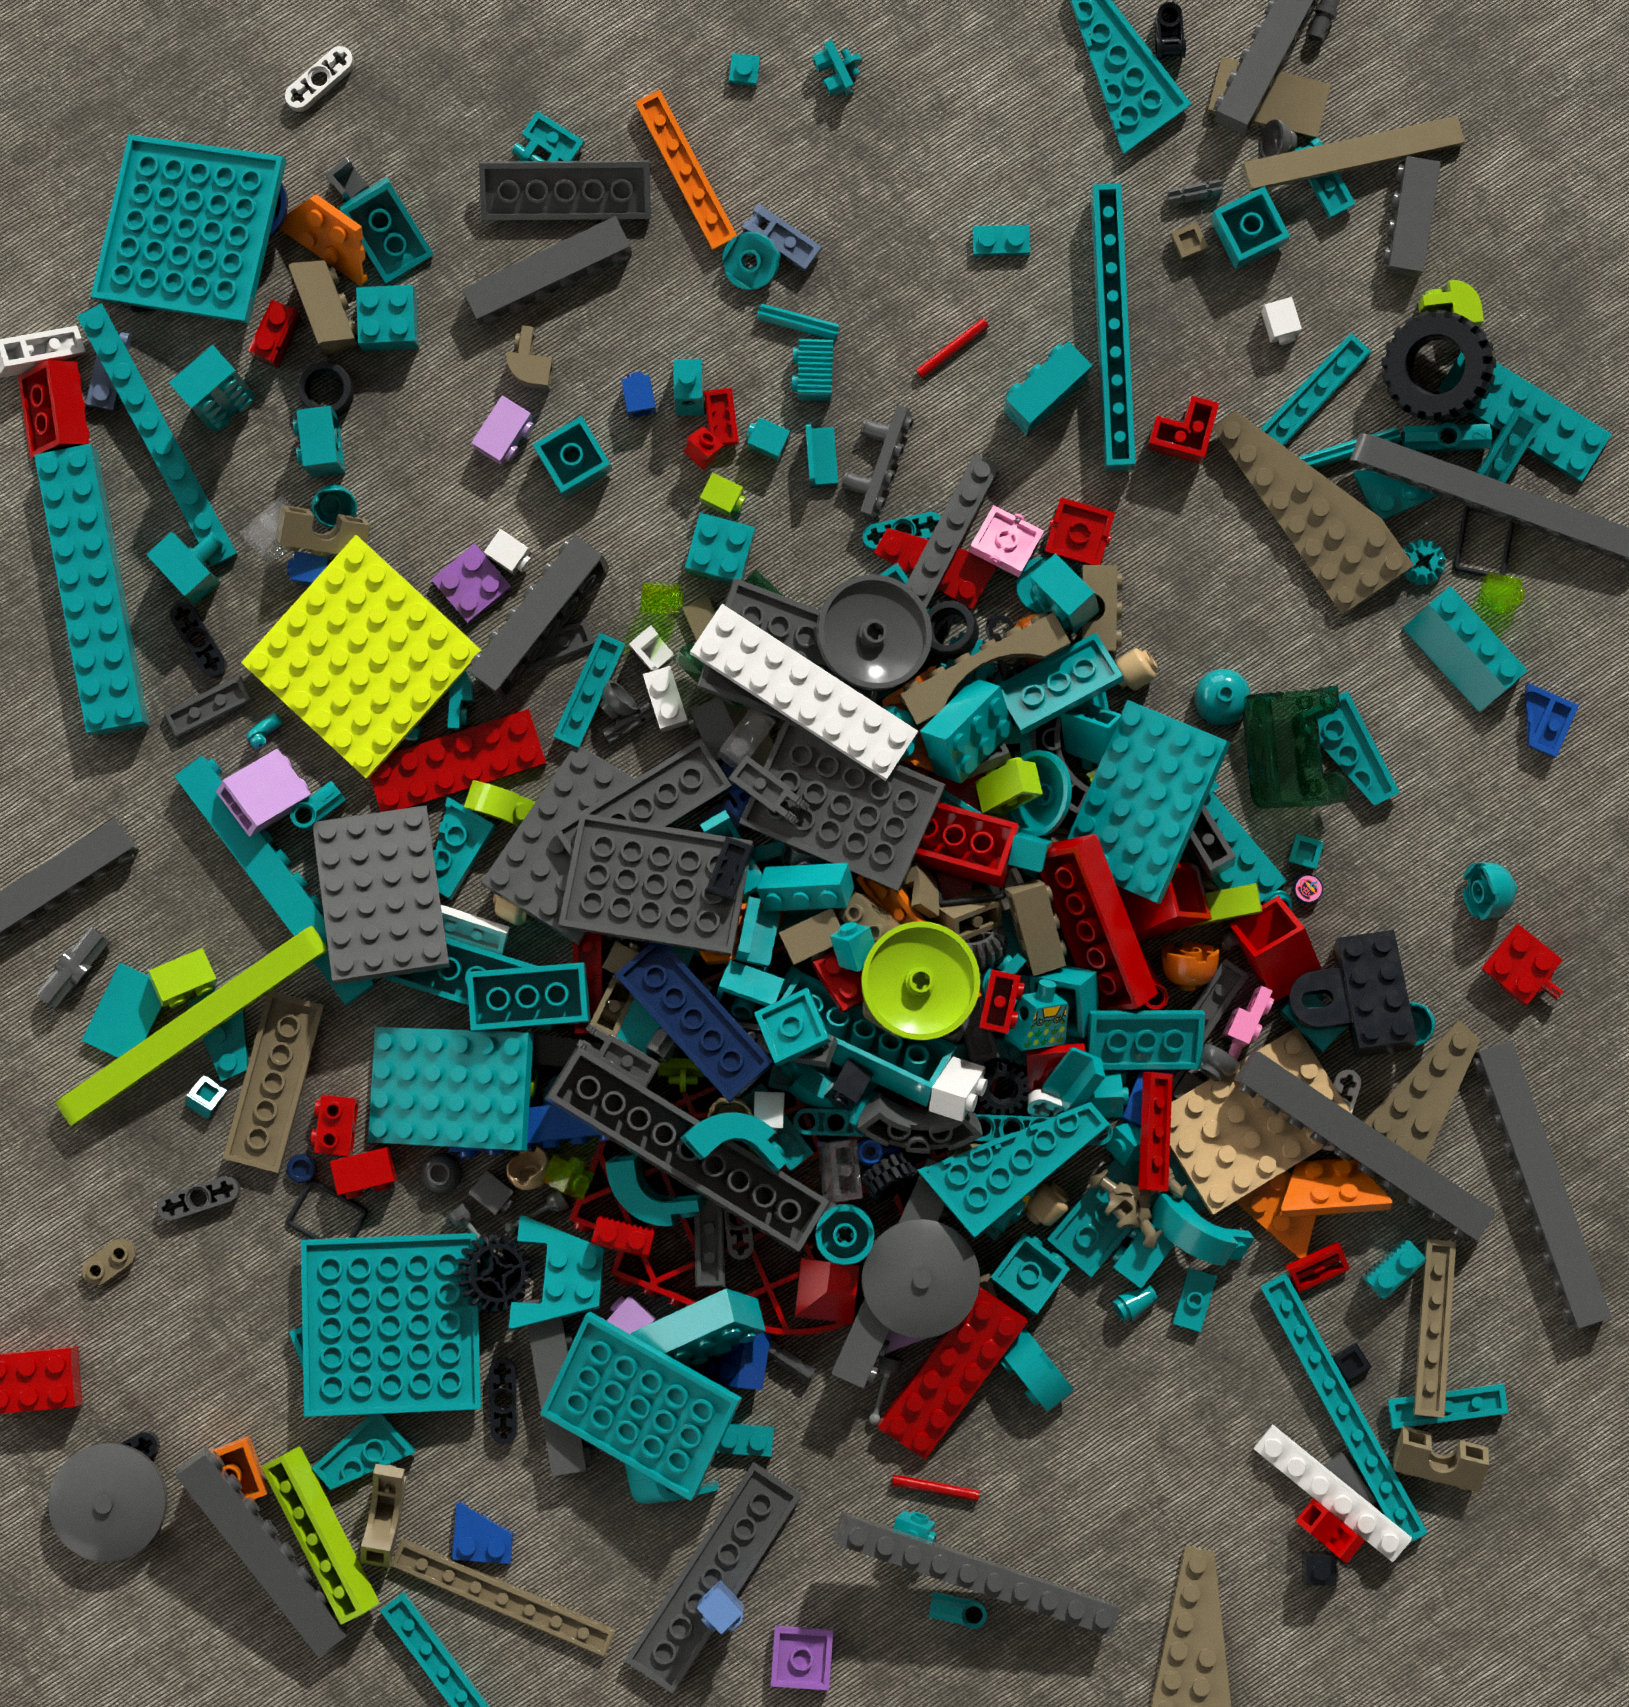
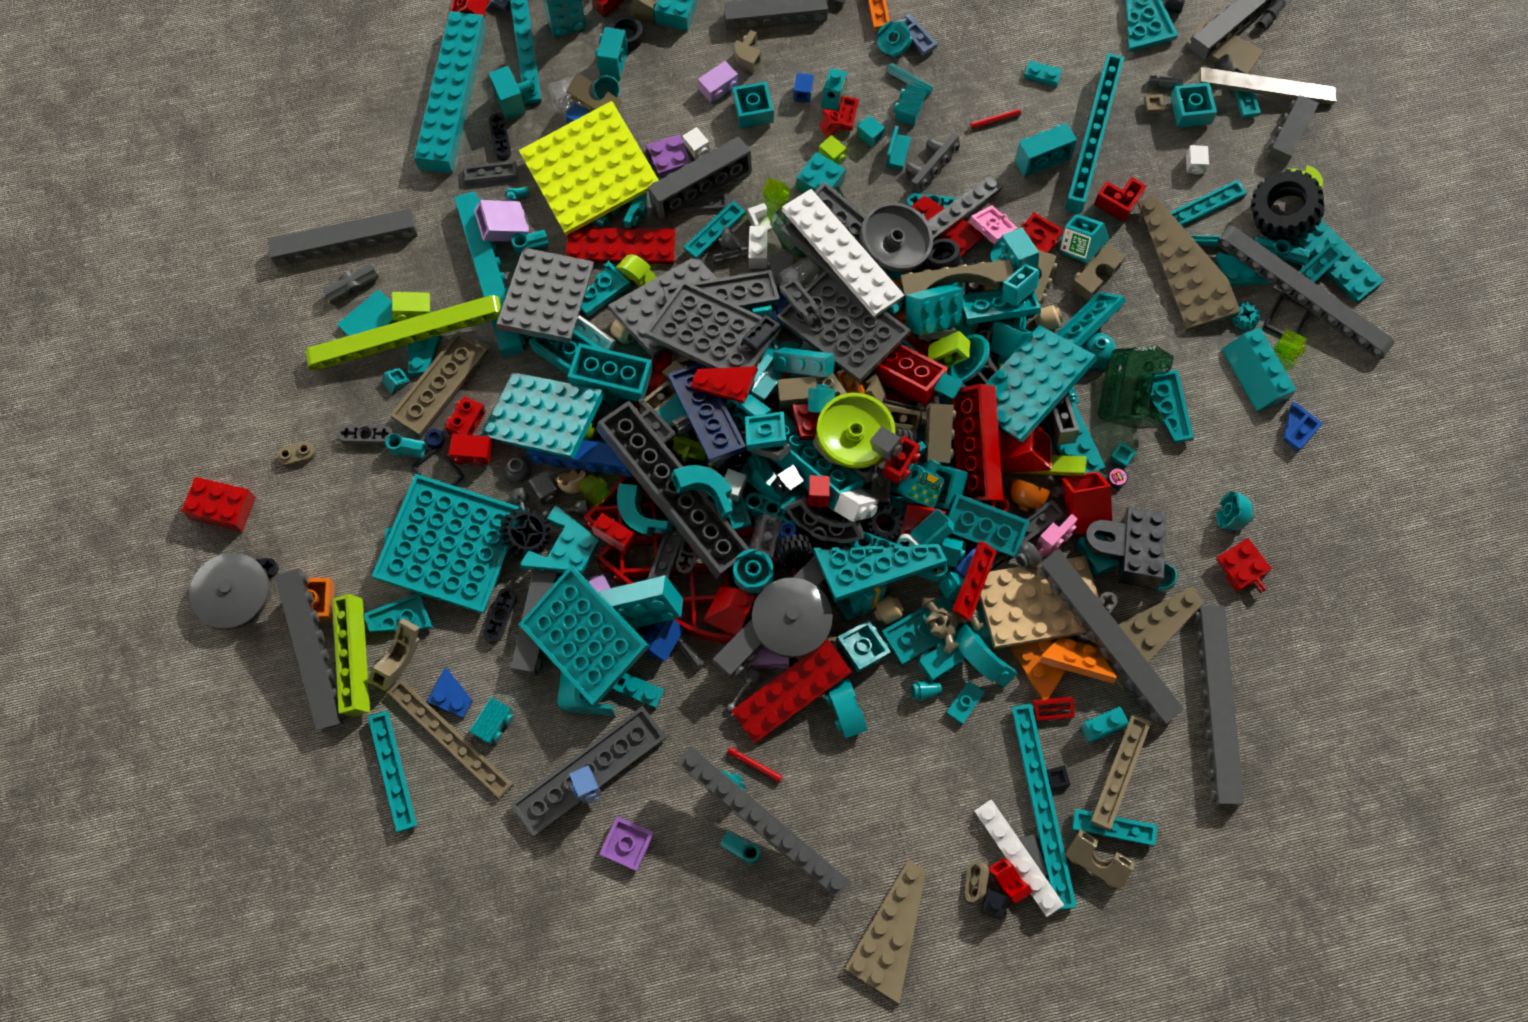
camera: 15 degrees right, 15 degrees down
(268, 1197) = (406, 447): none -> teal piece
(553, 1557) = (491, 721): none -> teal brick
(707, 968) = (727, 383): none -> red wing
(898, 1090) = (818, 491): none -> panel
(974, 995) = (886, 443): none -> dark grey brick
(1082, 651) = (1020, 284): none -> teal brick
(1148, 523) = (1083, 238): none -> teal slope
(1194, 542) = (1106, 261): none -> dark tan arch
(1195, 655) = (1091, 317): none -> teal plate
(1285, 1544) = (976, 882): none -> dark tan plate

